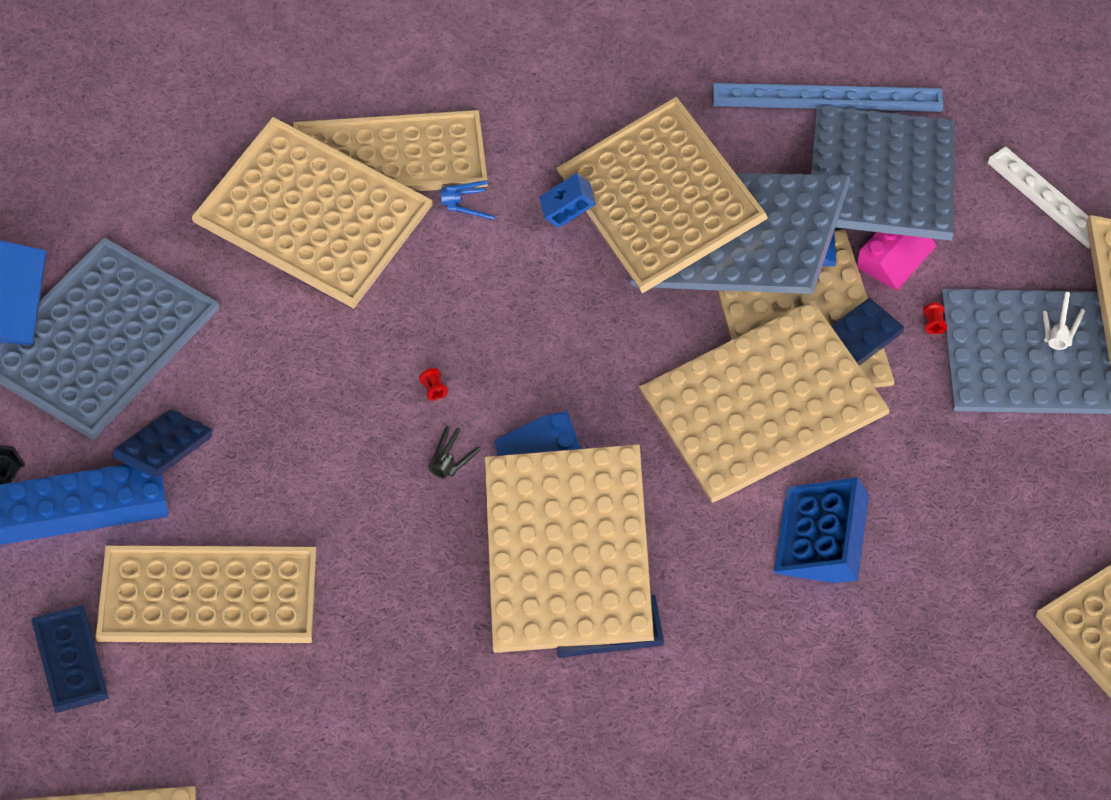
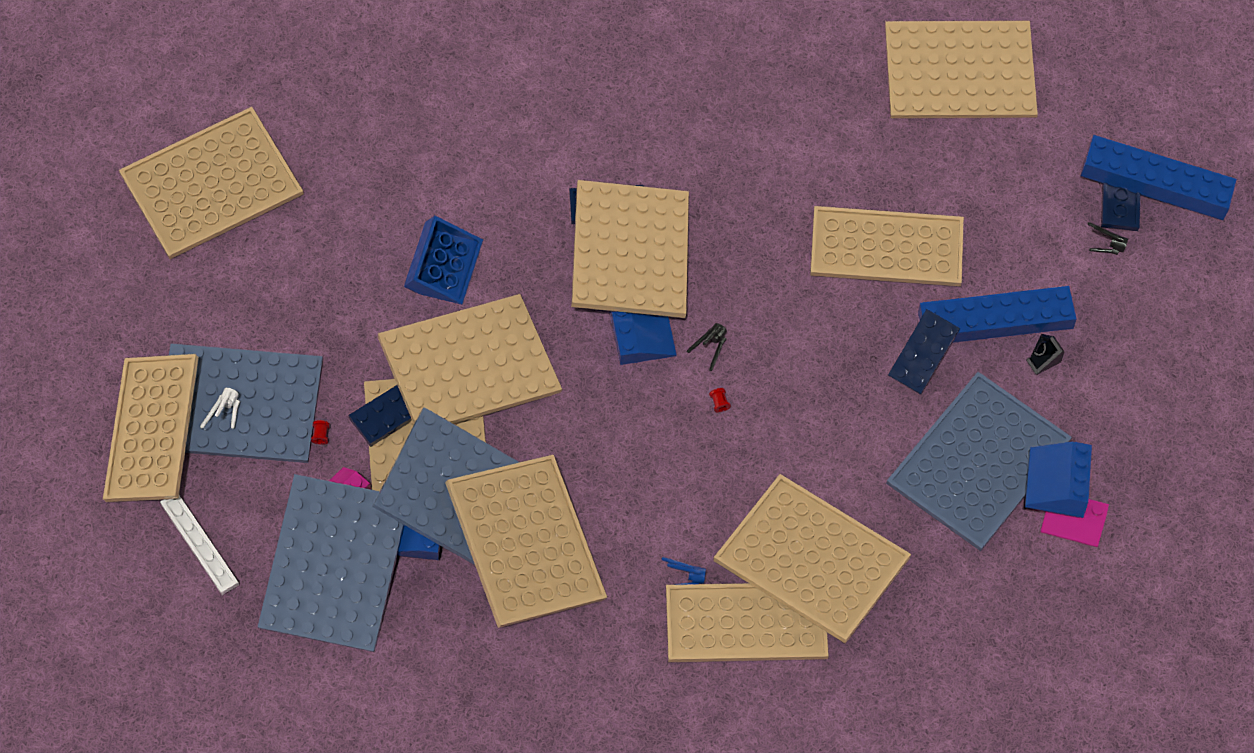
camera: 175 degrees left, 10 degrees up
(69, 658) = (980, 206): dark blue plate -> none
(567, 200) = (601, 551): blue brick -> none
(836, 96) = (362, 659): medium blue plate -> none

